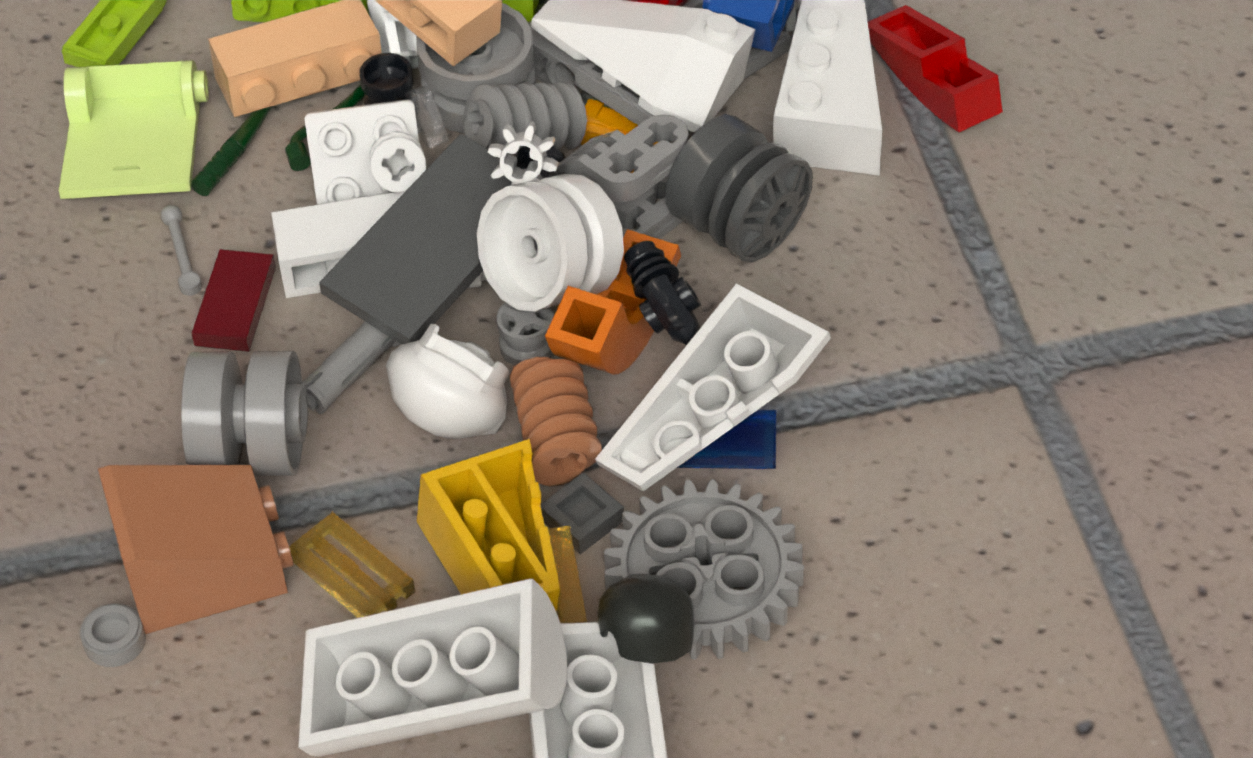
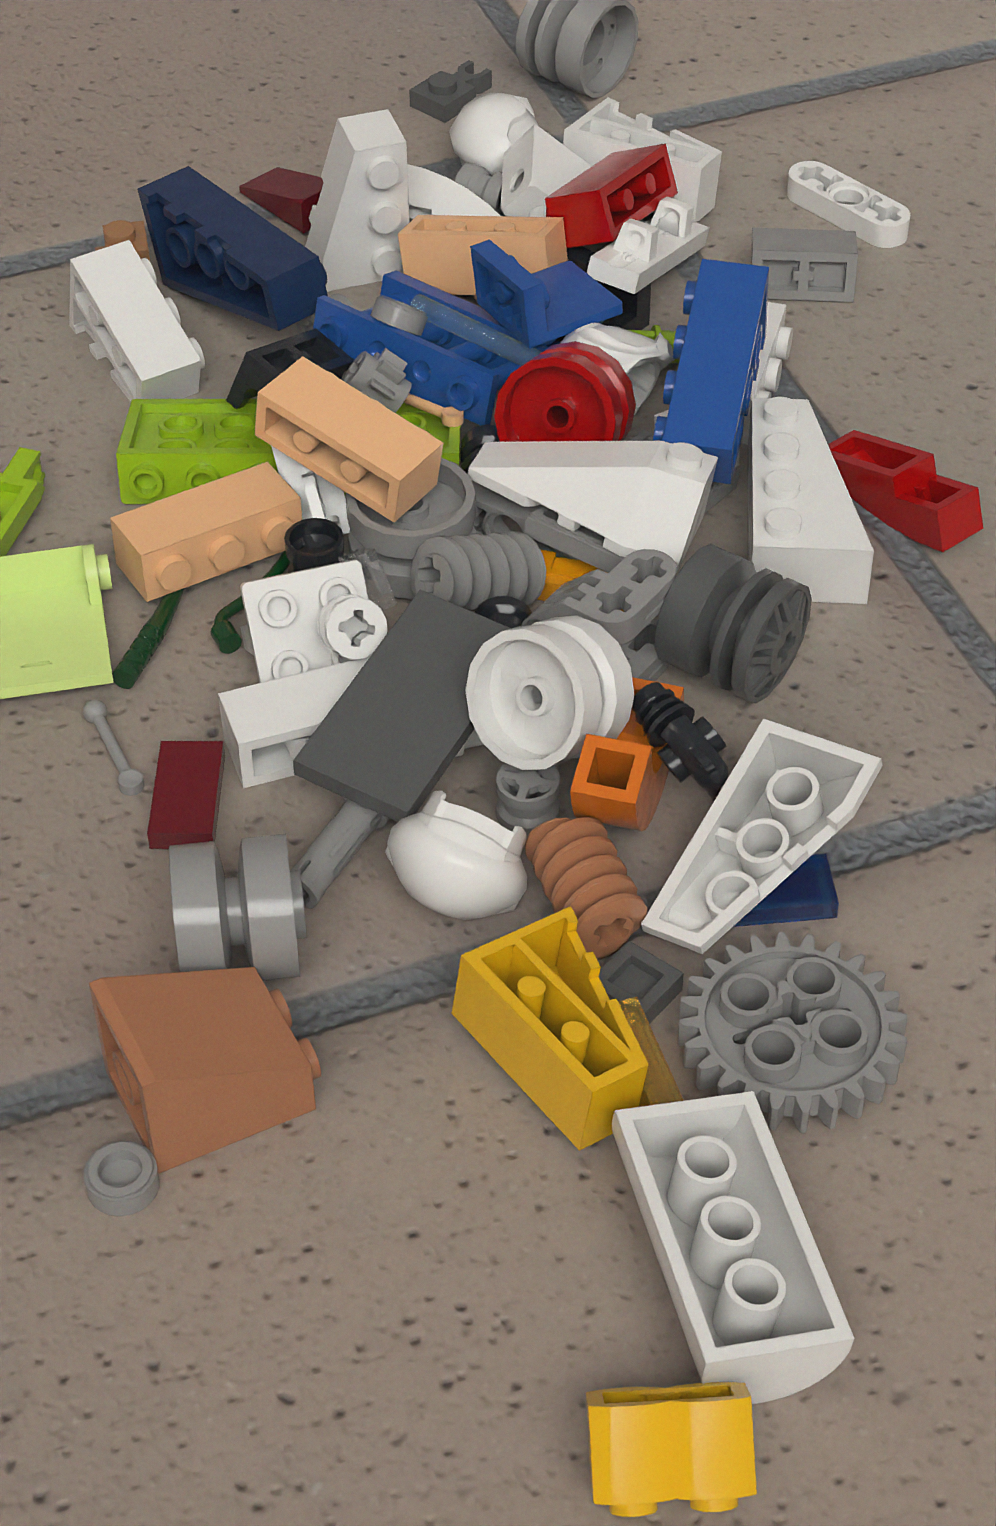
camera: 10 degrees left, 5 degrees down
(380, 599) = (379, 1084): clear yellow tile -> none
(431, 668) = (523, 1169): white brick -> none
(537, 152) = (492, 590): white gear -> none
(648, 618) = (758, 1085): pearl dark grey hair -> none

